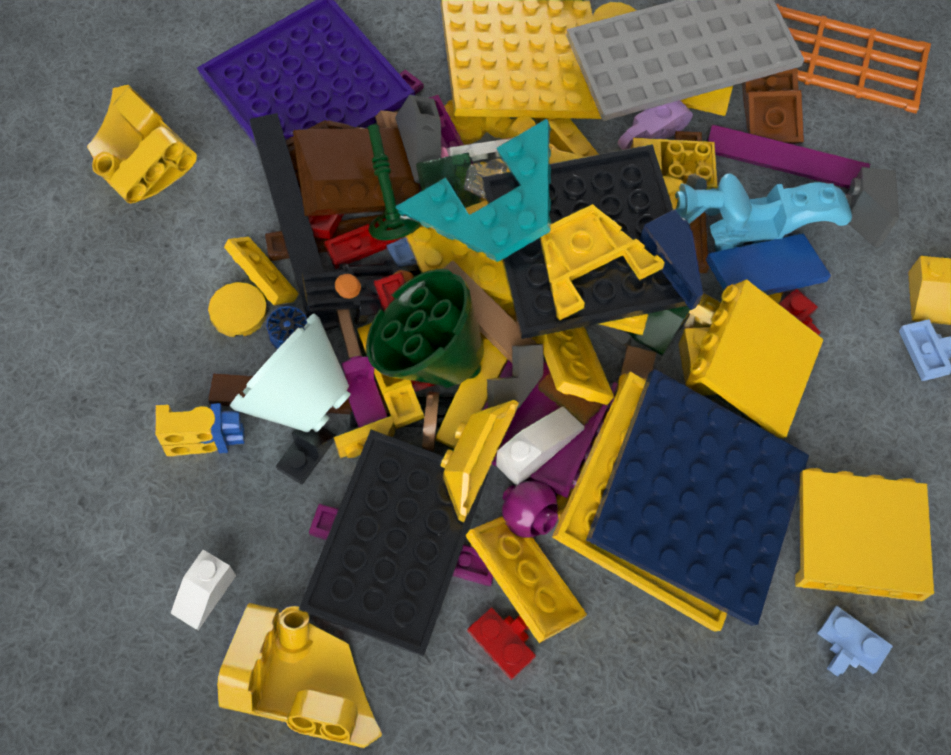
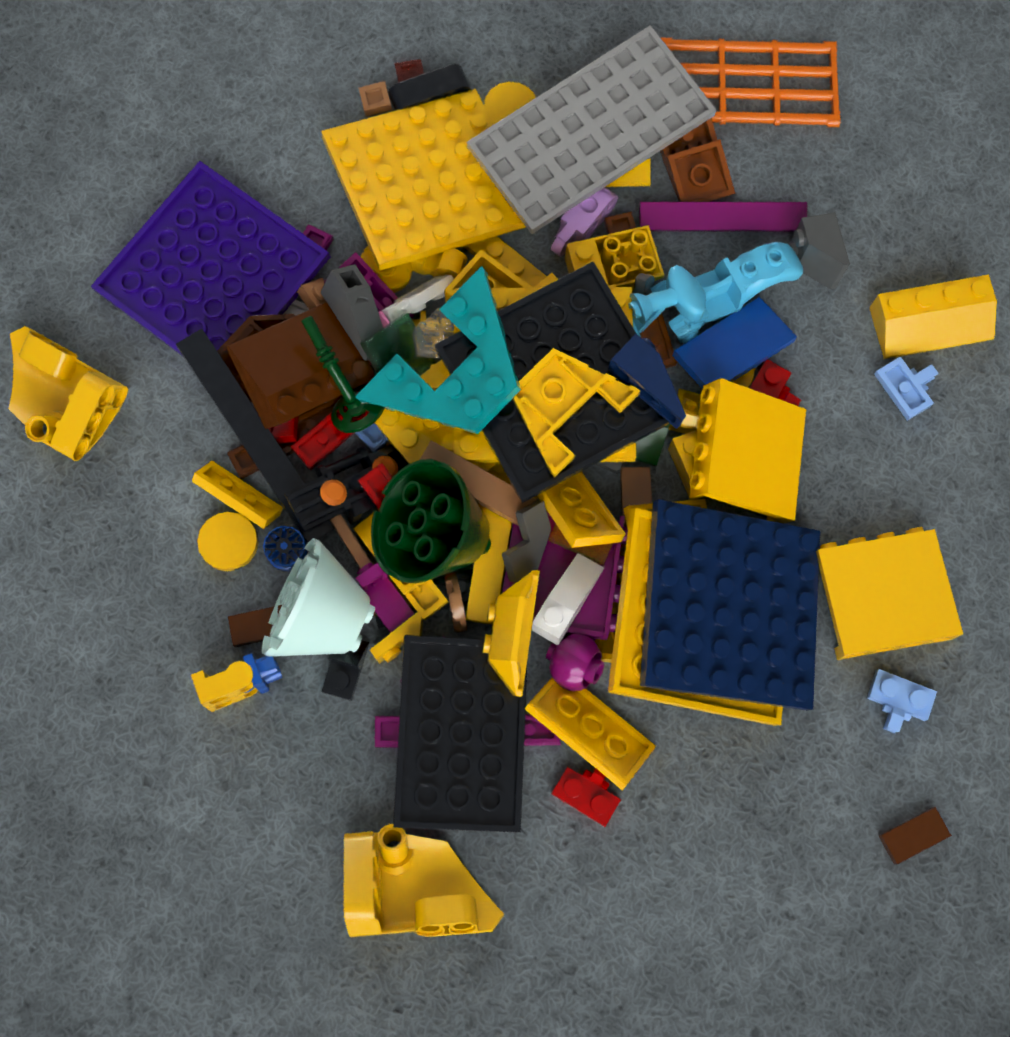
camera: 15 degrees left, 10 degrees up
(202, 589) = (294, 834): white slope -> none

